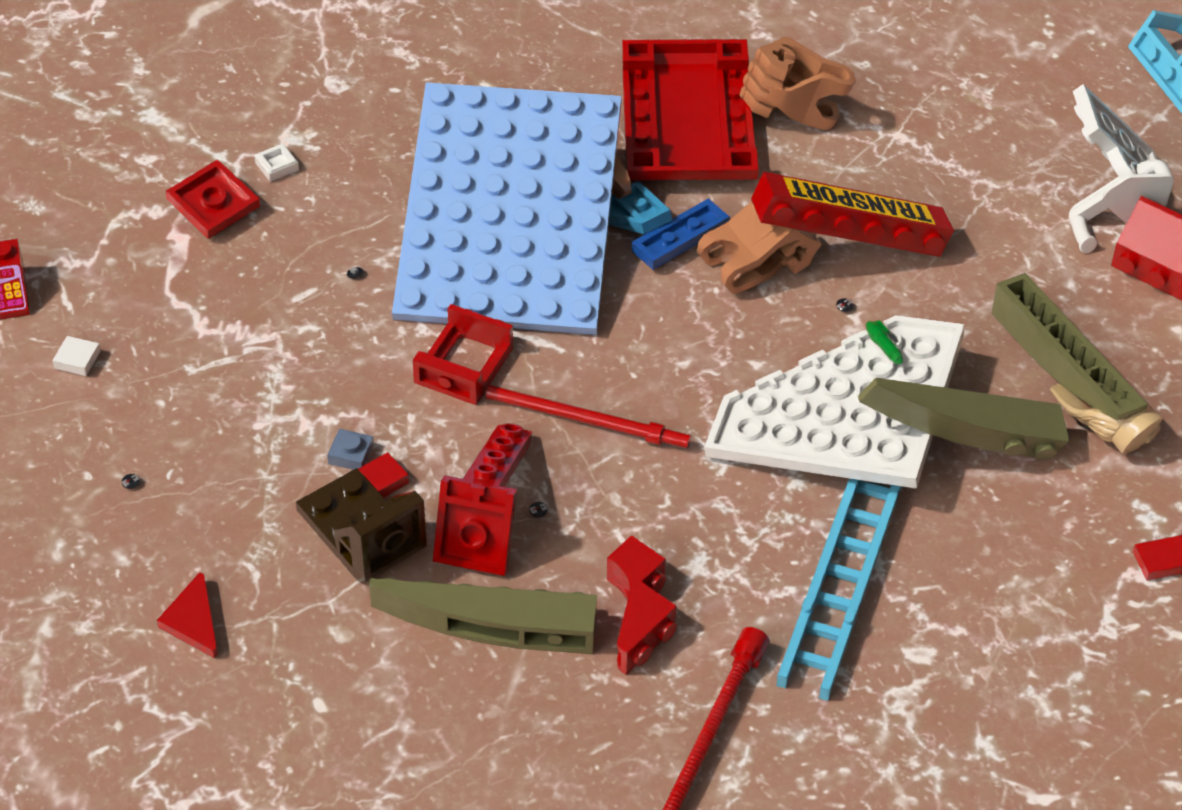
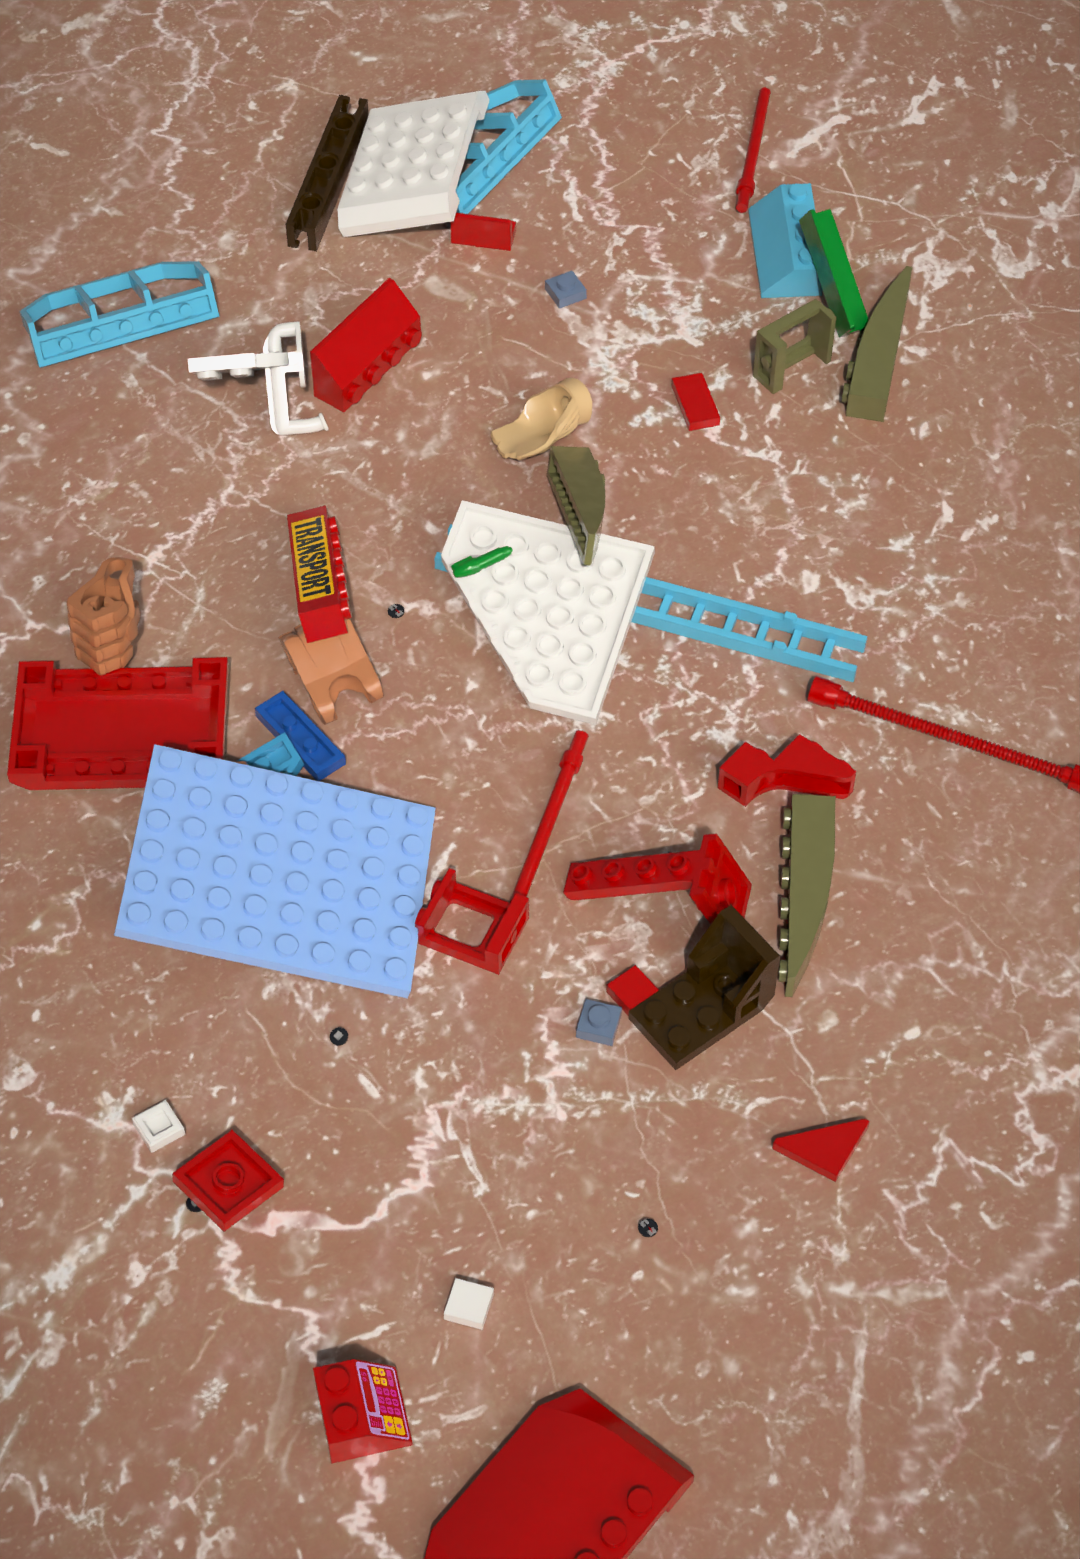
camera: 90 degrees left, 5 degrees up
(1062, 348) = (481, 439): olive slope -> none

